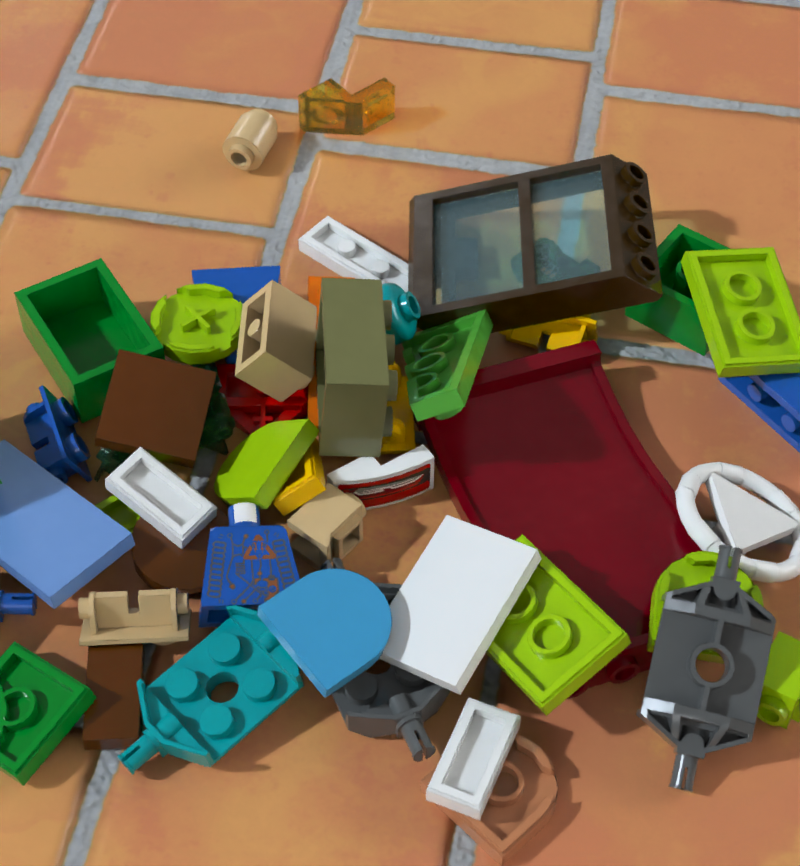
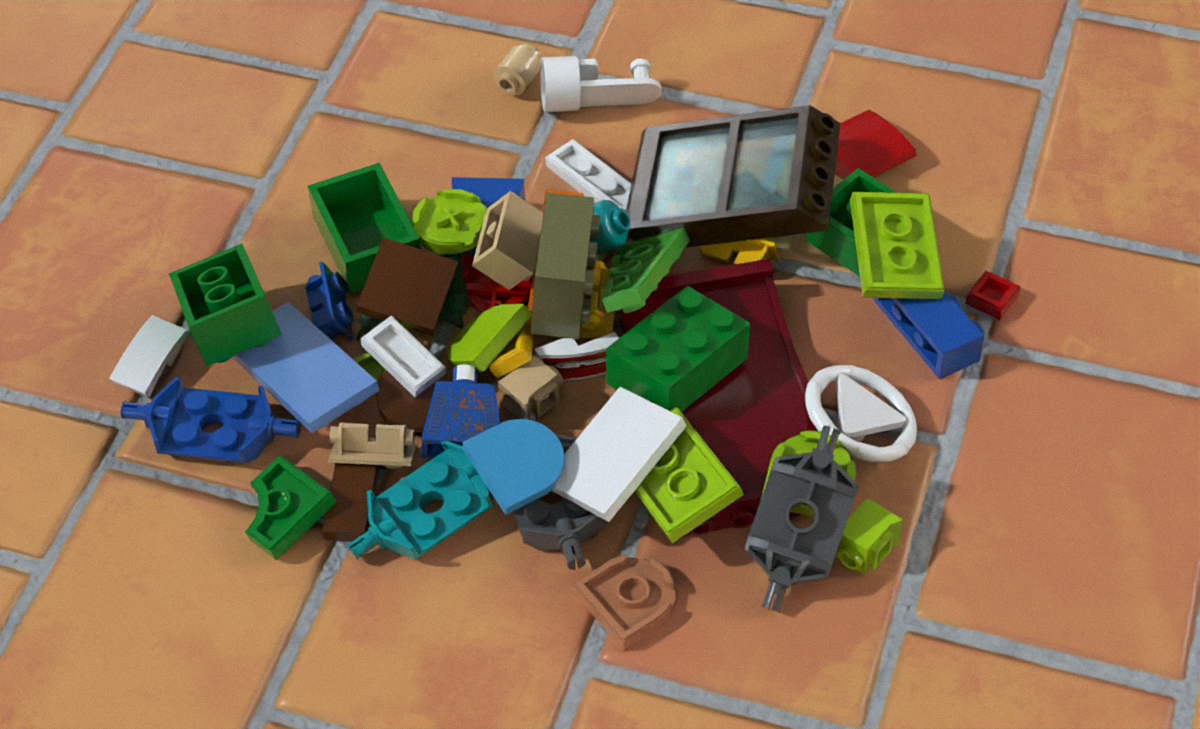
camera: 10 degrees right, 0 degrees up
(319, 151) = (573, 84): none -> white piece
(336, 111) = (610, 51): clear yellow slope -> none
(473, 758) = (613, 570): white tile -> none
(508, 462) = (678, 351): none -> green piece
(683, 198) = (870, 145): none -> red slope

